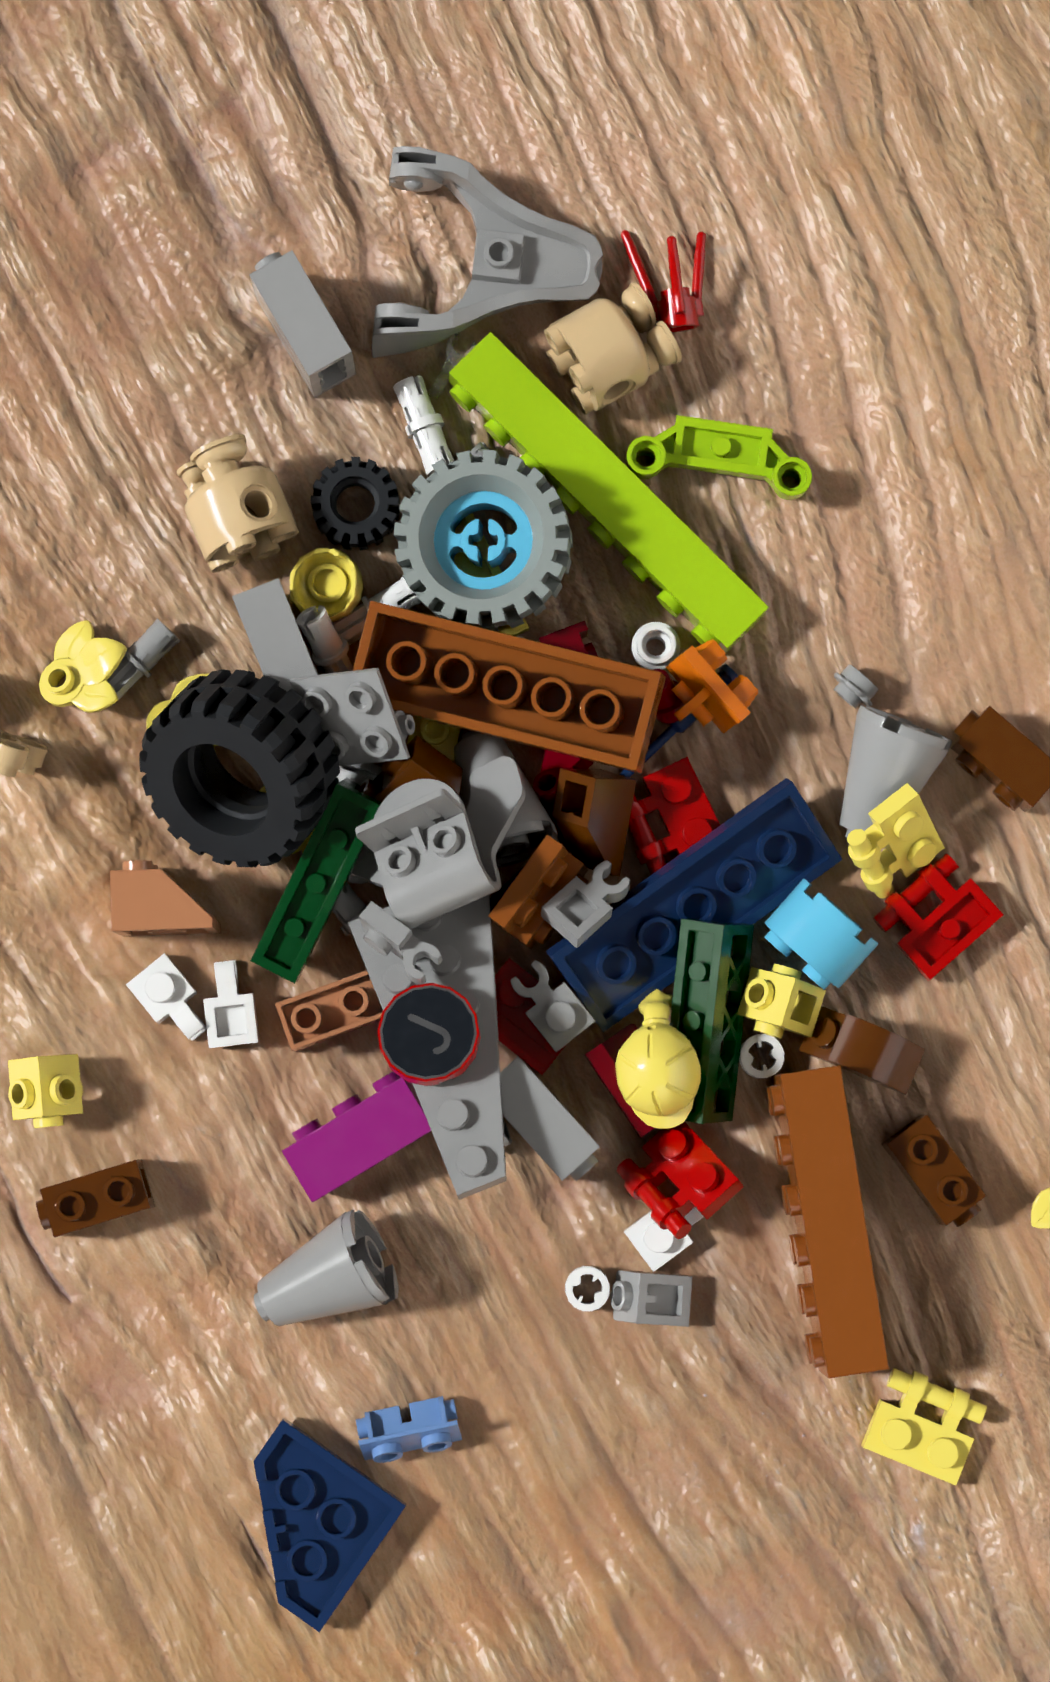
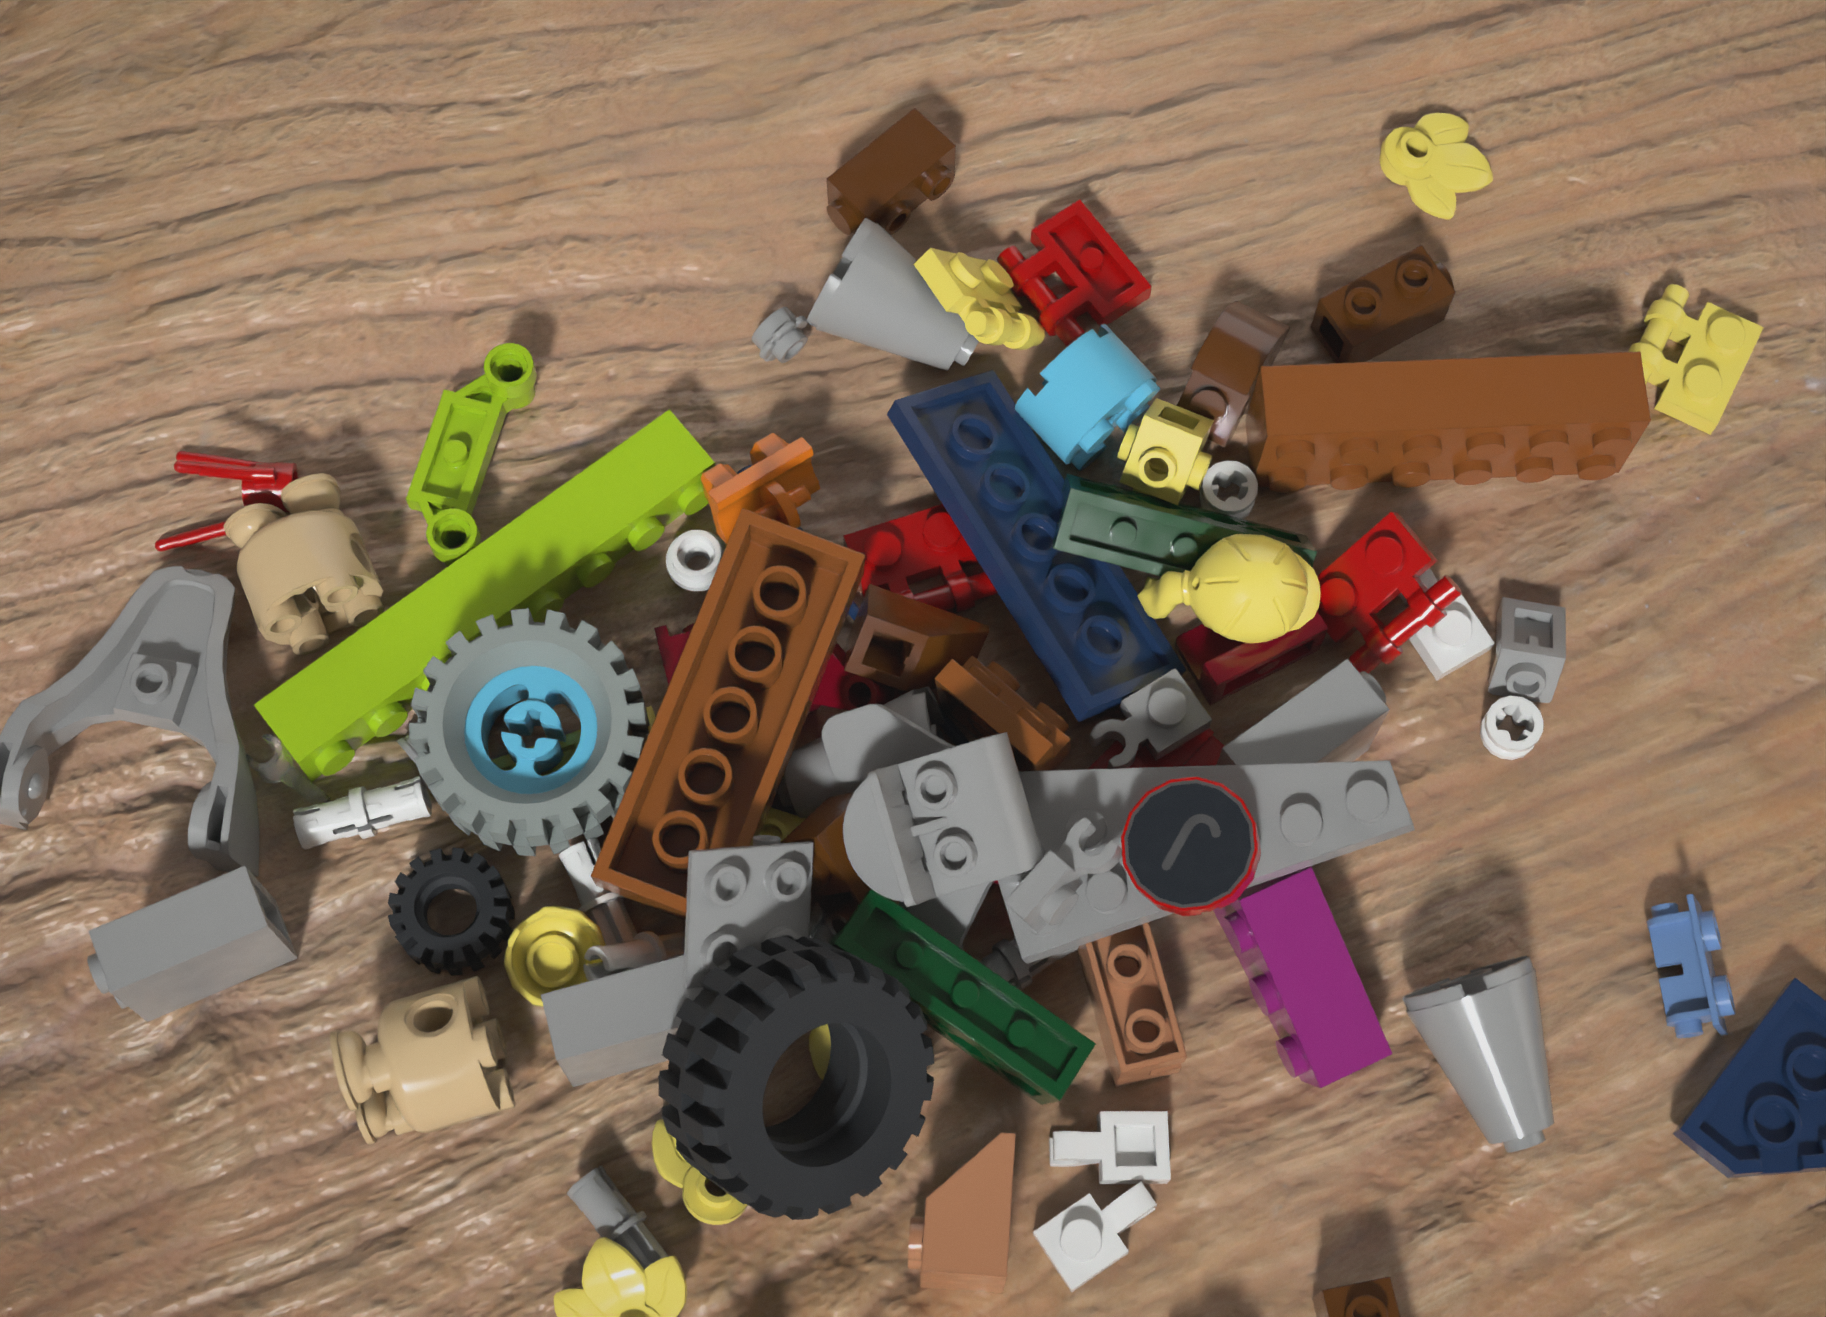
camera: 80 degrees left, 15 degrees down
(584, 908) = (1028, 657): light grey plate -> none

